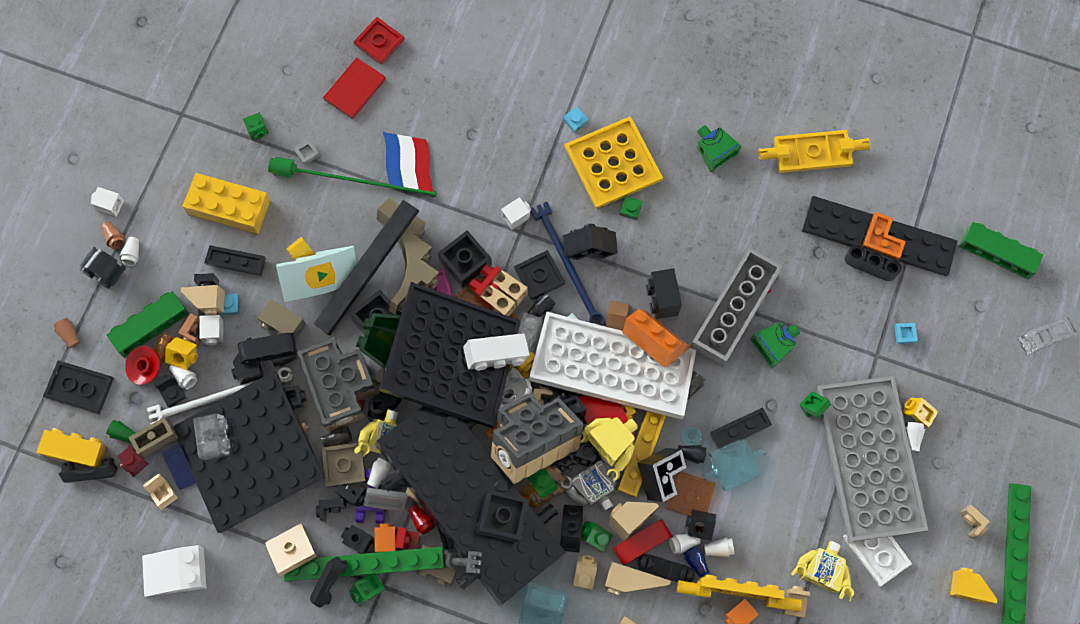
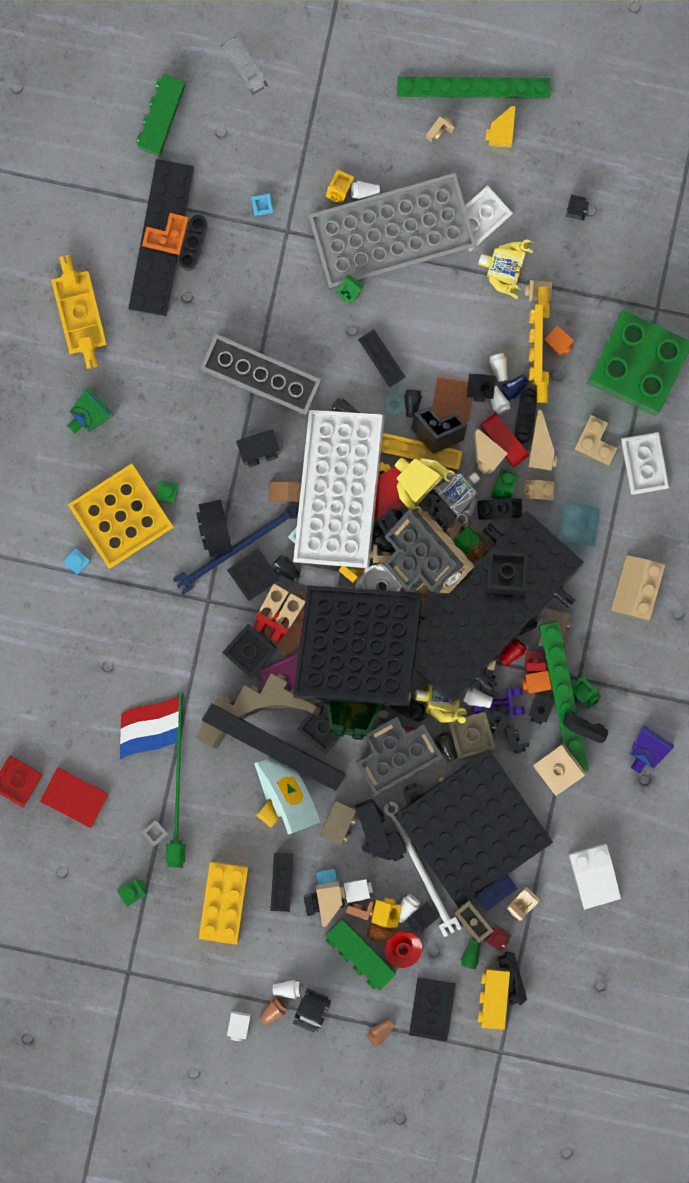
camera: 95 degrees left, 15 degrees up
(209, 446) = (476, 865): clear brick -> none
(385, 500) = (502, 690): light grey tile -> none
(454, 561) = (551, 612): dark grey hinge -> none
(496, 351) = (349, 602): white brick -> none
(516, 213) = (191, 607): white brick -> none
(654, 337) = (304, 451): orange slope -> none
(734, 464) = (417, 361): clear light blue plate -> none
(775, 342) = (290, 332): green torso -> none

